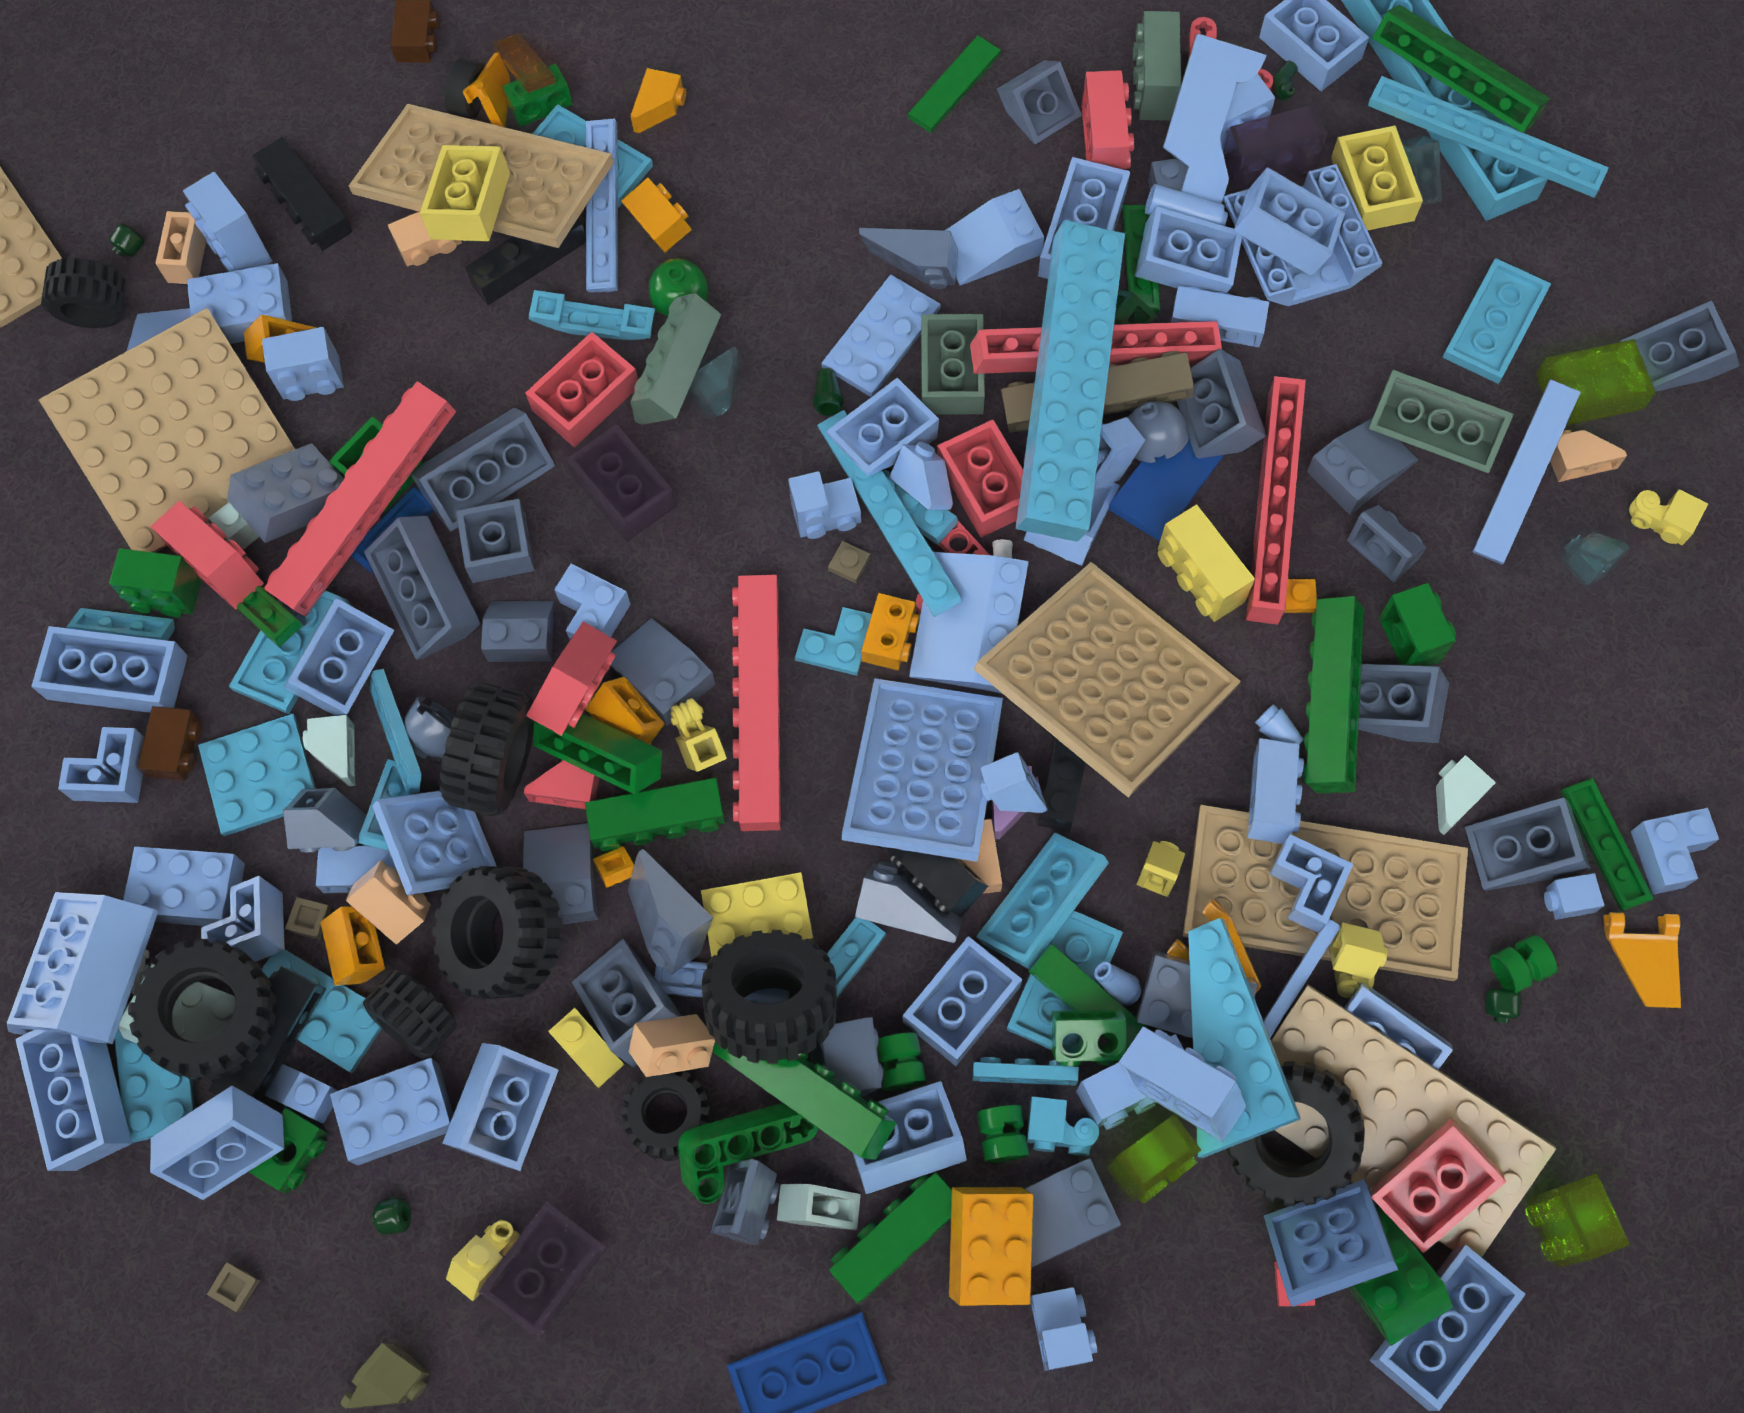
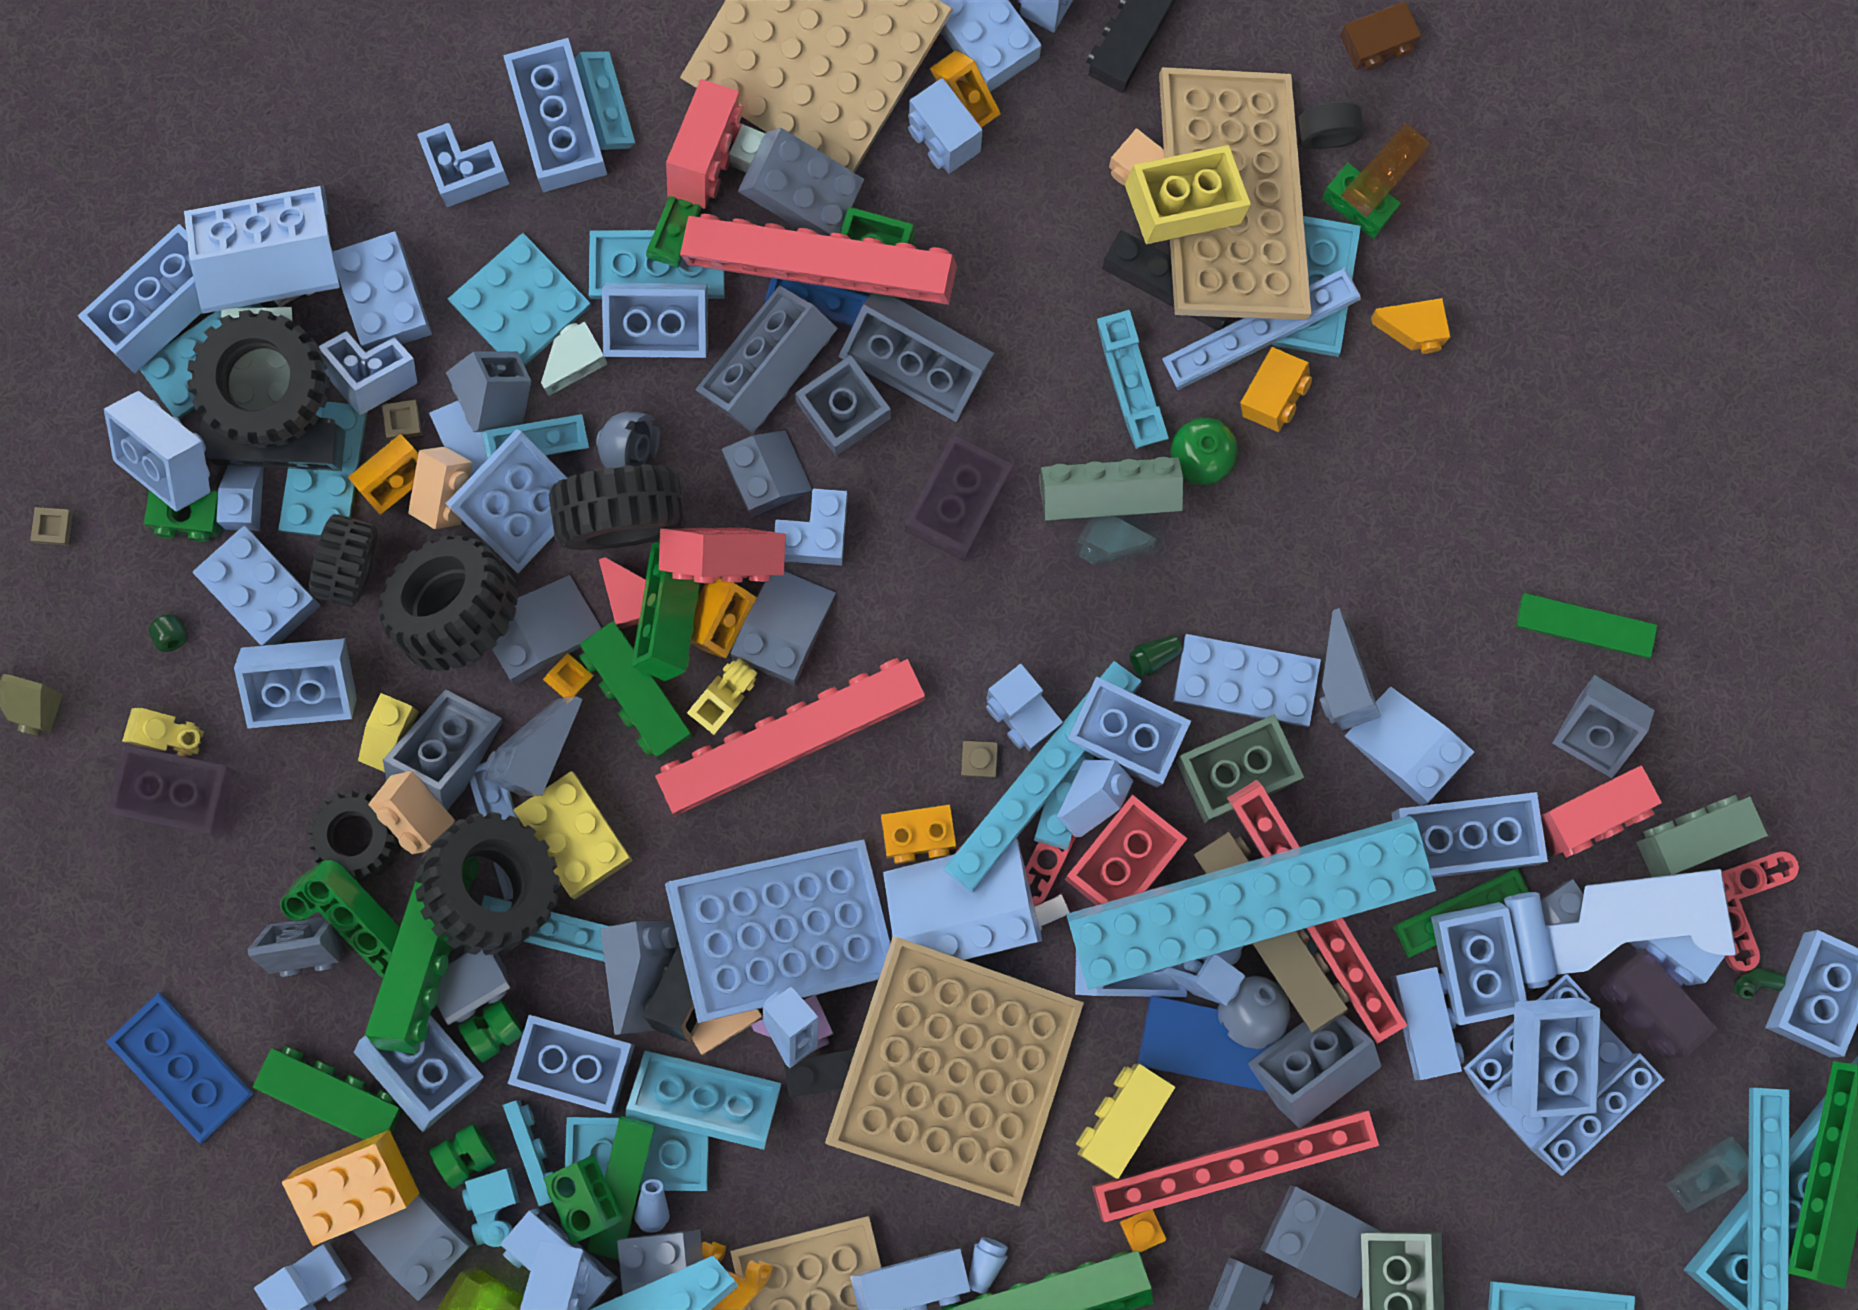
camera: 60 degrees right, 10 degrees up
(155, 582) = (654, 108): green brick -> none
(170, 743) = (511, 207): reddish brown brick -> none
(395, 732) = (608, 408): medium azure tile -> none
(490, 90) = (1336, 150): light orange flag -> none
(582, 389) = (1043, 411): coral brick -> none
(818, 1206) = (328, 1013): light aqua slope -> none
(838, 651) = (880, 792): medium azure plate -> none
(1132, 307) = (1382, 930): dark green brick -> none
(1161, 868) = (786, 1203): light yellow slope -> none
(1378, 177) = (1672, 1130): light yellow brick -> none

